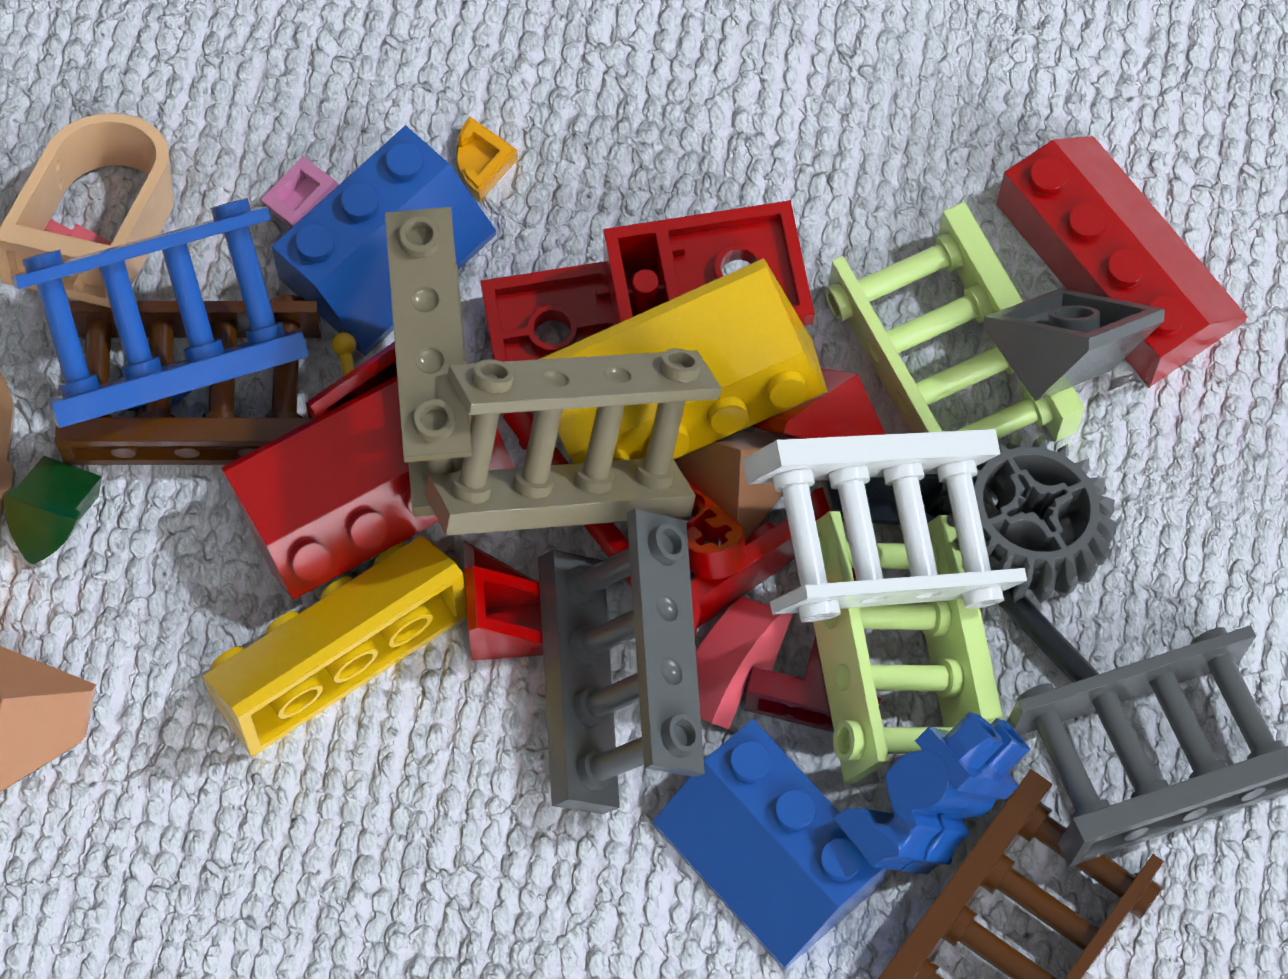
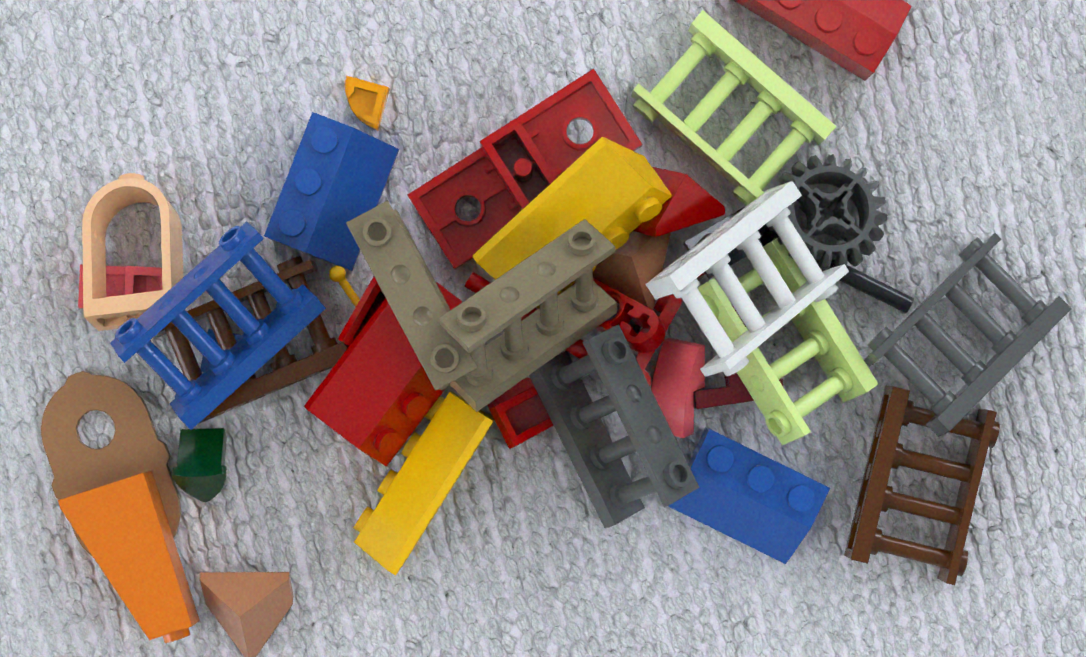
camera: 15 degrees left, 20 degrees up
(298, 192) = (262, 181): bright pink plate -> none
(934, 793) = (842, 440): blue hips -> none
(1068, 337) = (809, 84): dark grey slope -> none

